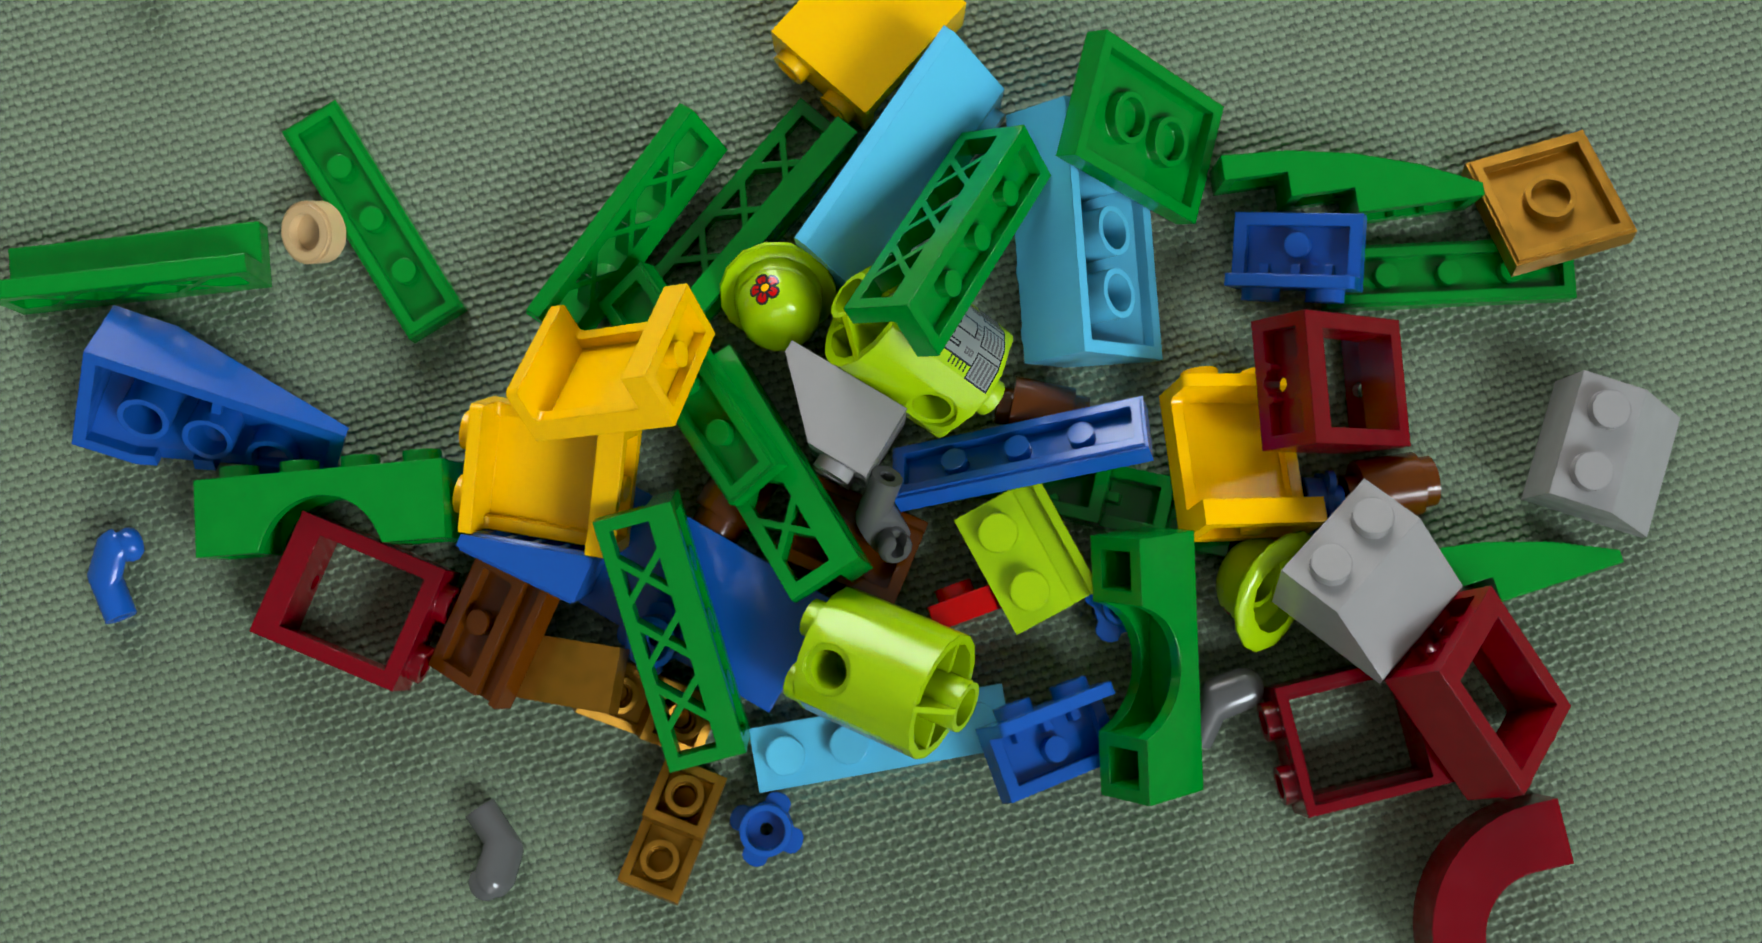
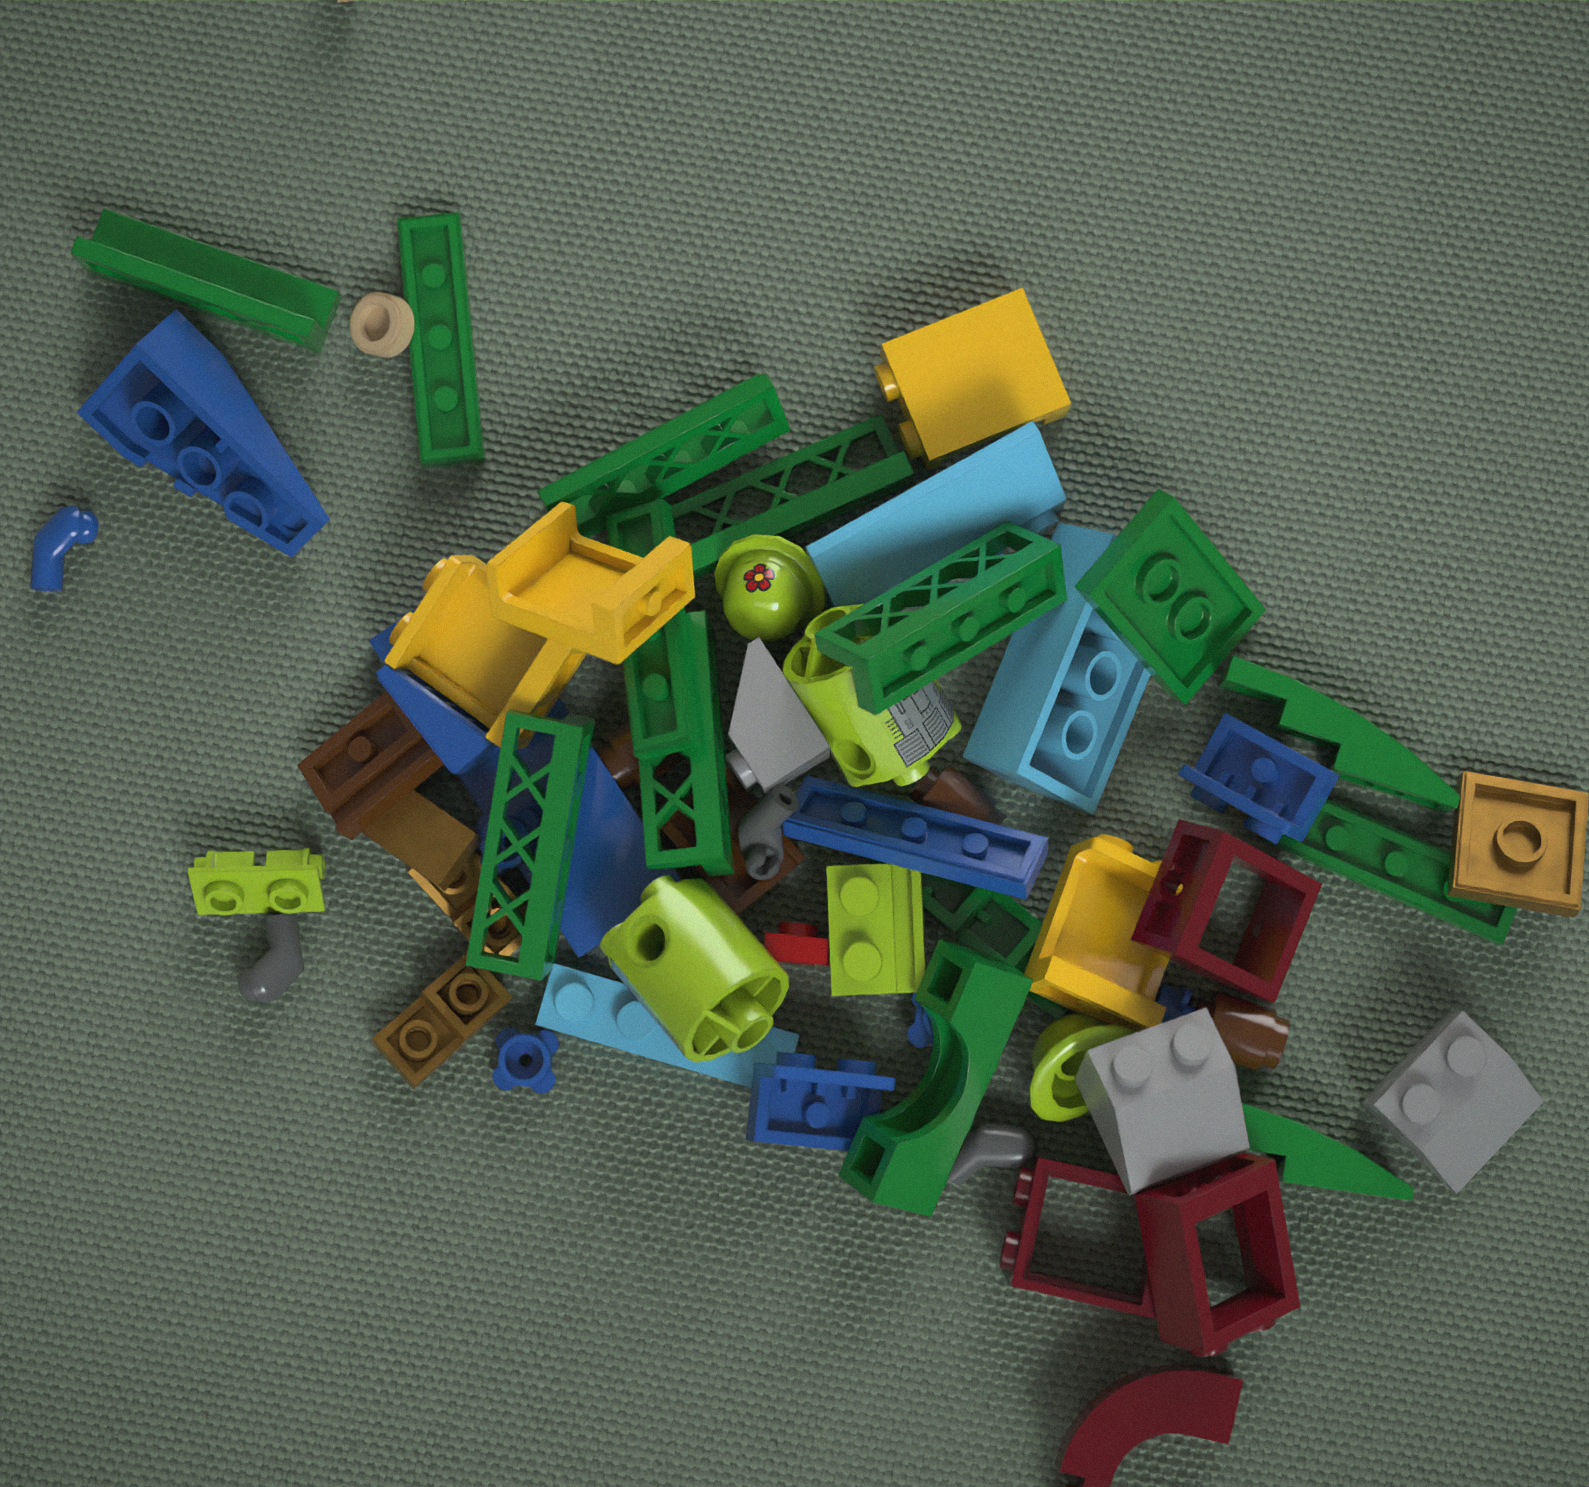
camera: 30 degrees right, 0 degrees up
(256, 513) = (212, 558): green arch -> none
(298, 580) = (219, 633): dark red window -> none
(423, 801) = (233, 884): none -> lime hinge

